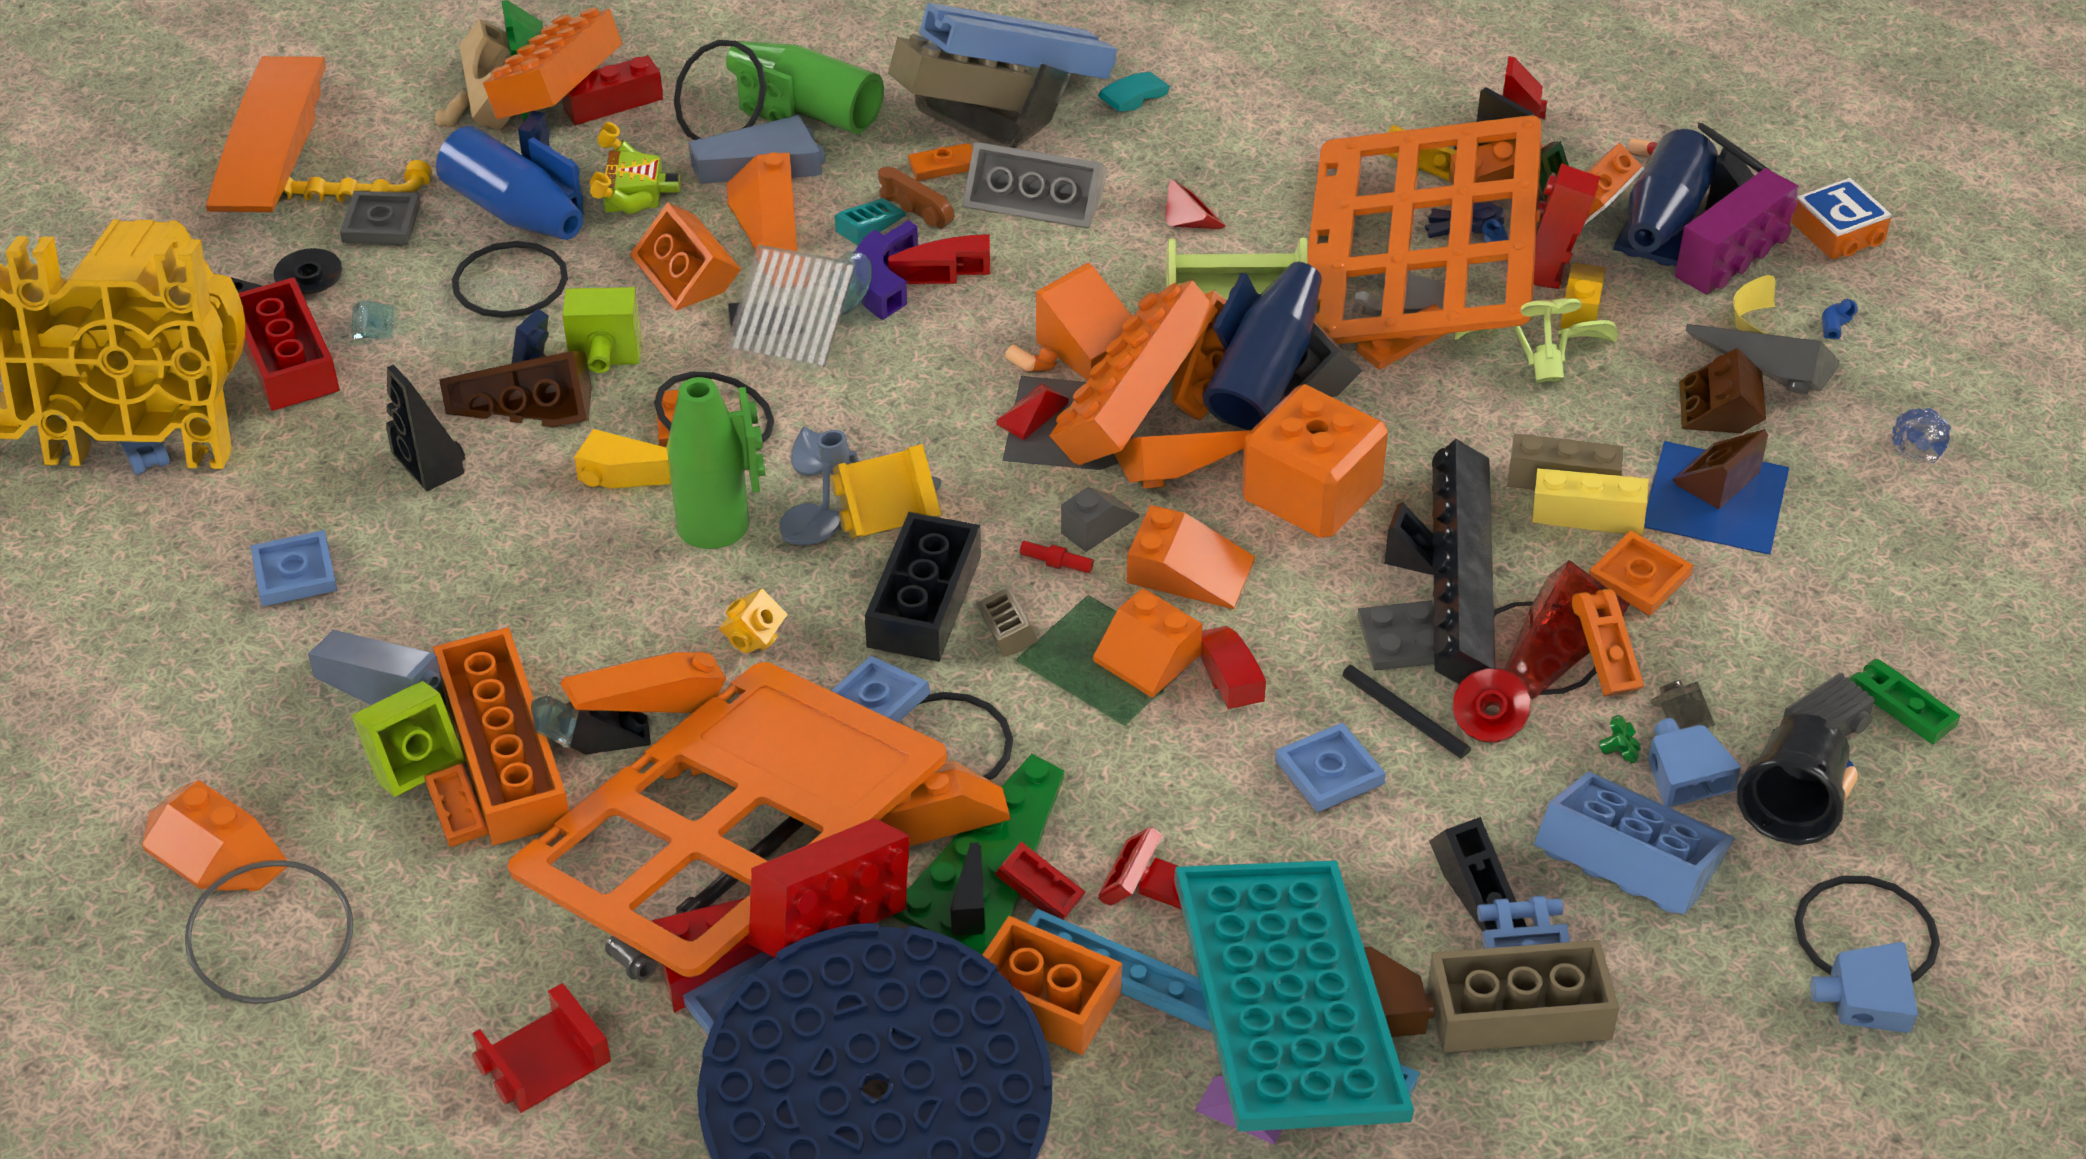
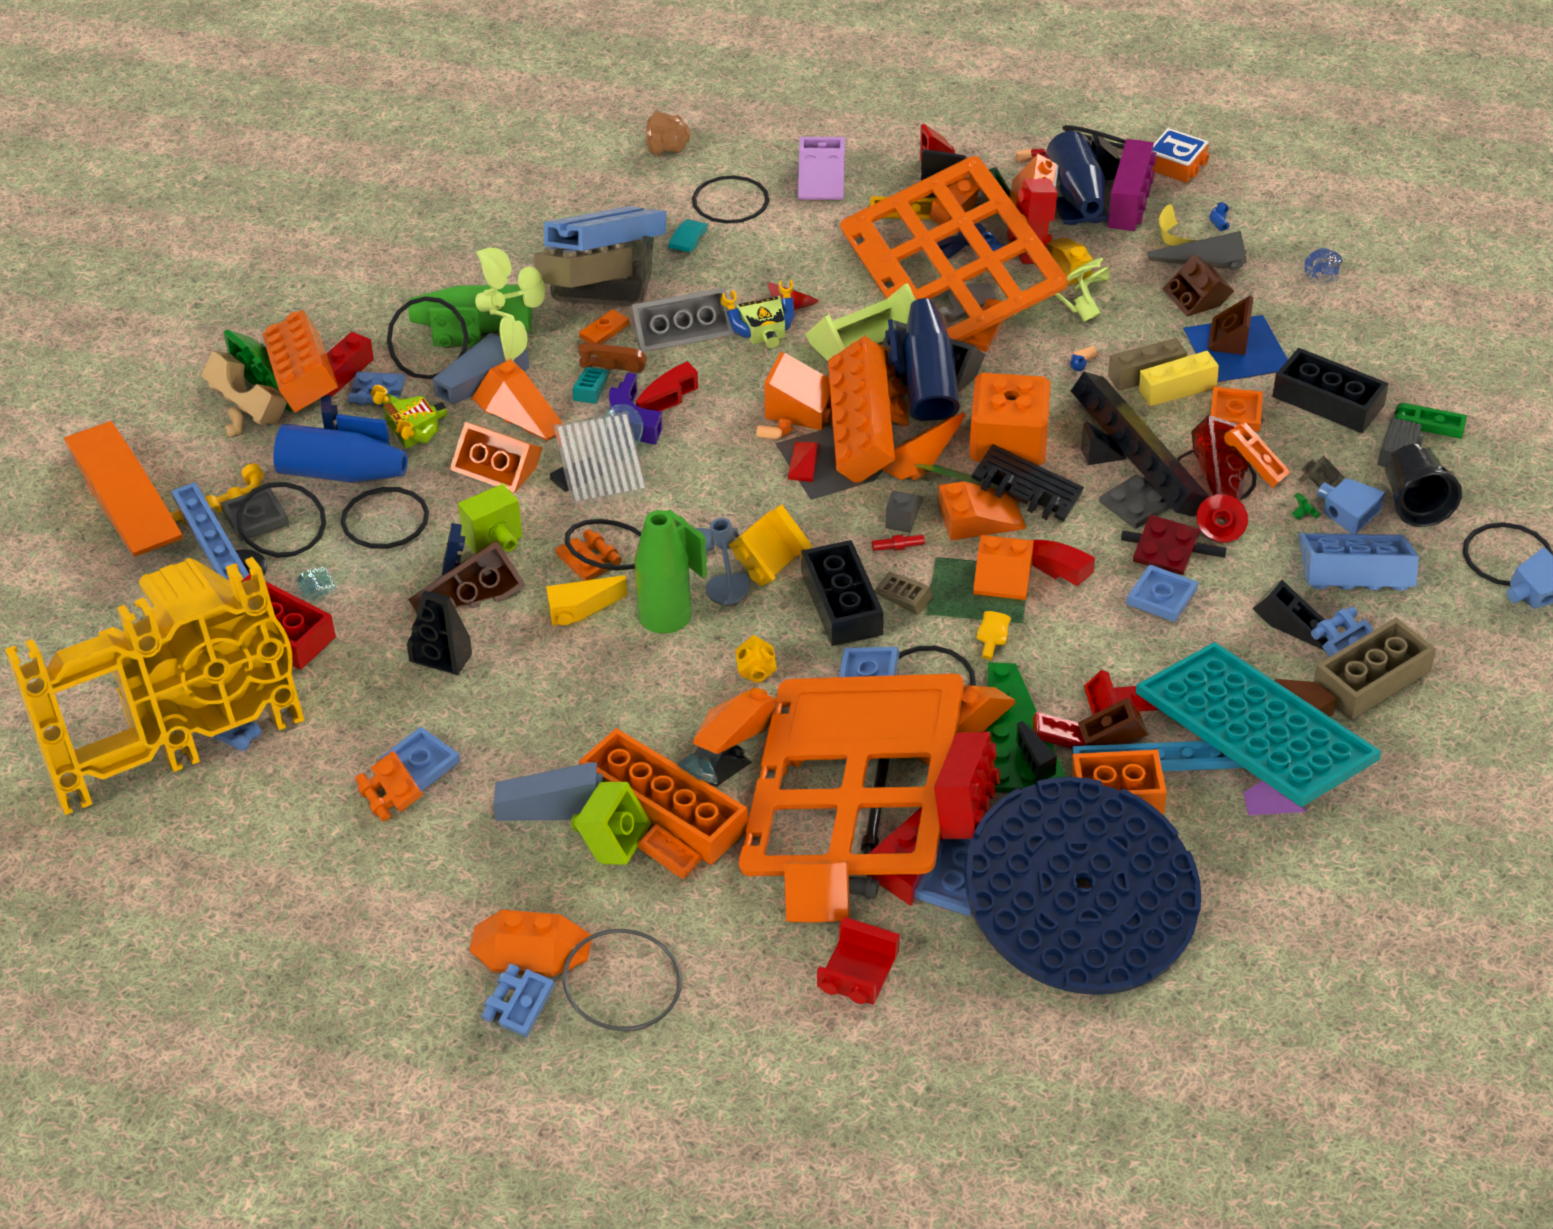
camera: 30 degrees left, 0 degrees up
(140, 902) = (525, 1004): none -> medium blue plate
(239, 581) = (395, 780): none -> orange plate
(302, 219) = (207, 529): none -> medium blue plate
(396, 190) = (273, 485): none -> black piece
(560, 935) = (816, 891): none -> orange slope
(639, 129) = (365, 382): none -> medium blue plate
(868, 76) = (496, 269): none -> yellowish green plant
(1068, 719) = (993, 632): none -> yellow piece
(1110, 908) = (1114, 725): none -> reddish brown slope
(1129, 220) = (762, 319): none -> torso
(1198, 507) = (953, 473): none -> green sticker
(1274, 552) = (1027, 483): none -> black hinge
(1276, 73) = (766, 196): none -> black piece
(1360, 69) = (821, 168): none -> lavender slope
(1389, 707) = (1166, 544): none -> dark red plate
(1489, 424) = (1080, 358): none -> arm
(1786, 600) = (1330, 390): none -> black brick

